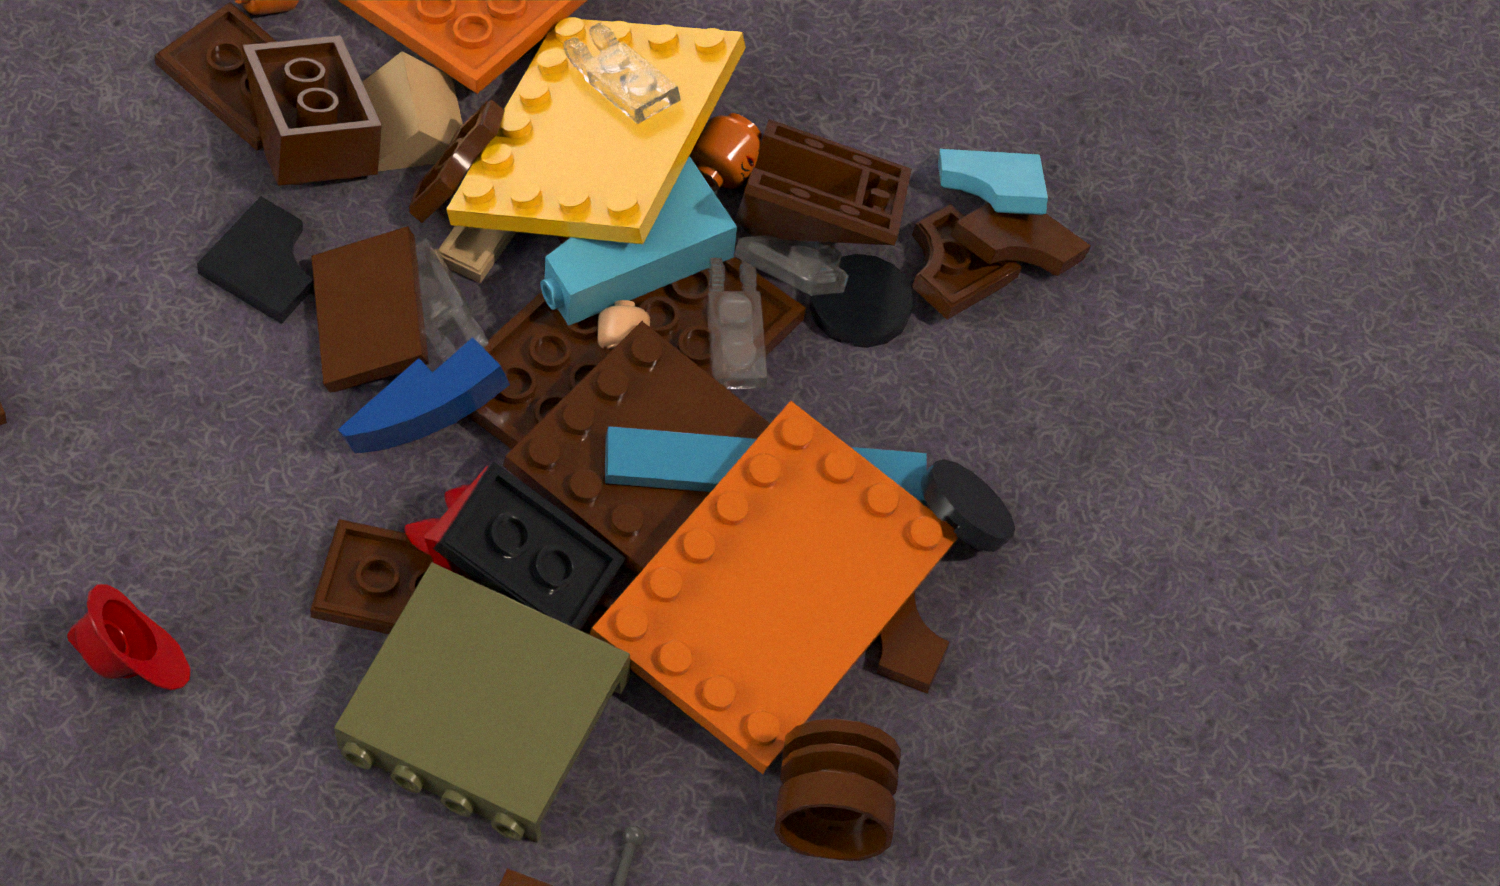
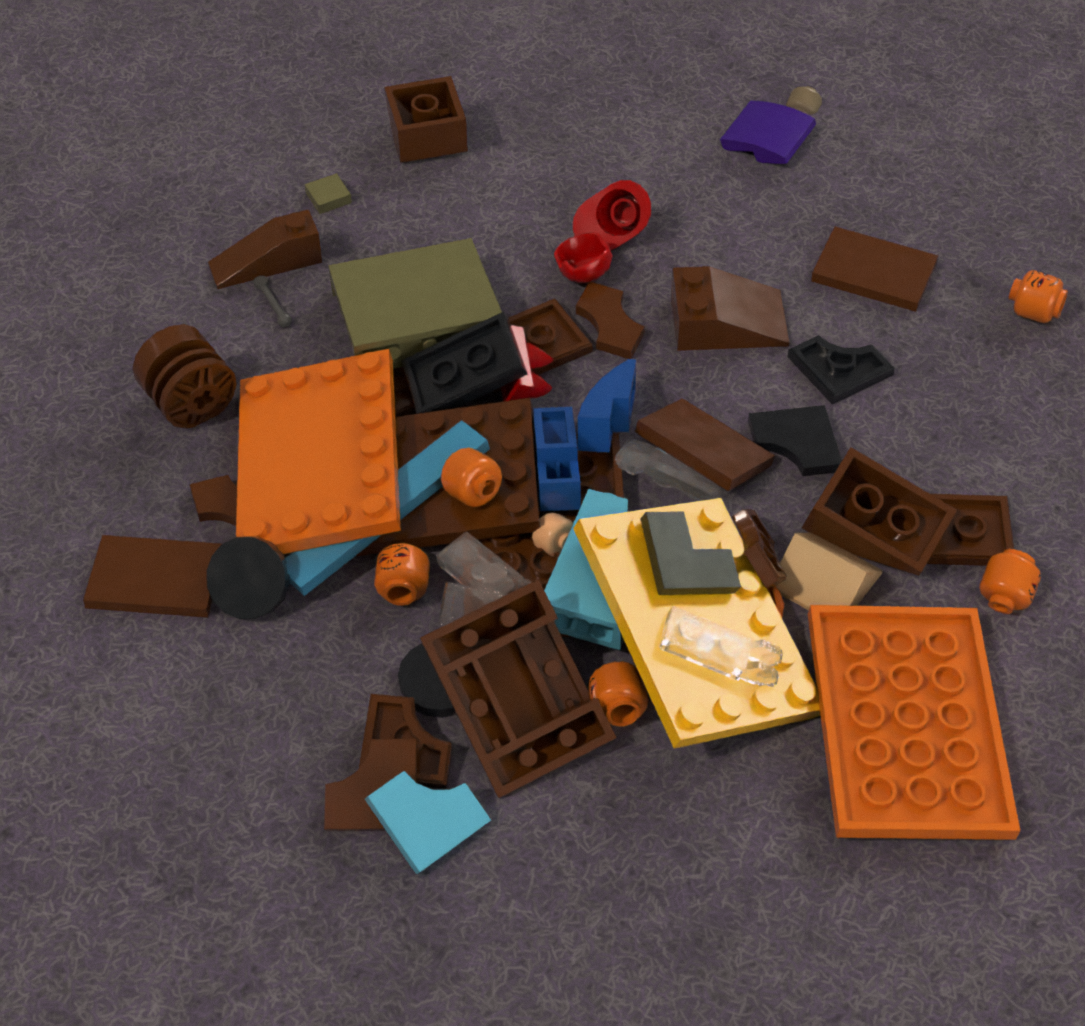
camera: 145 degrees right, 5 degrees down
(122, 297) = (839, 370): none -> black tile
(160, 440) = (725, 311): none -> reddish brown slope
(229, 615) = (583, 257): none -> red hair
(270, 560) = (615, 329): none -> reddish brown tile
(541, 380) = (557, 459): none -> blue slope
(571, 148) = (678, 566): none -> pearl dark grey tile
(669, 393) = (470, 474): none -> orange head
(816, 392) = (402, 573): none -> orange head
(1047, 614) = (150, 576): none -> reddish brown tile

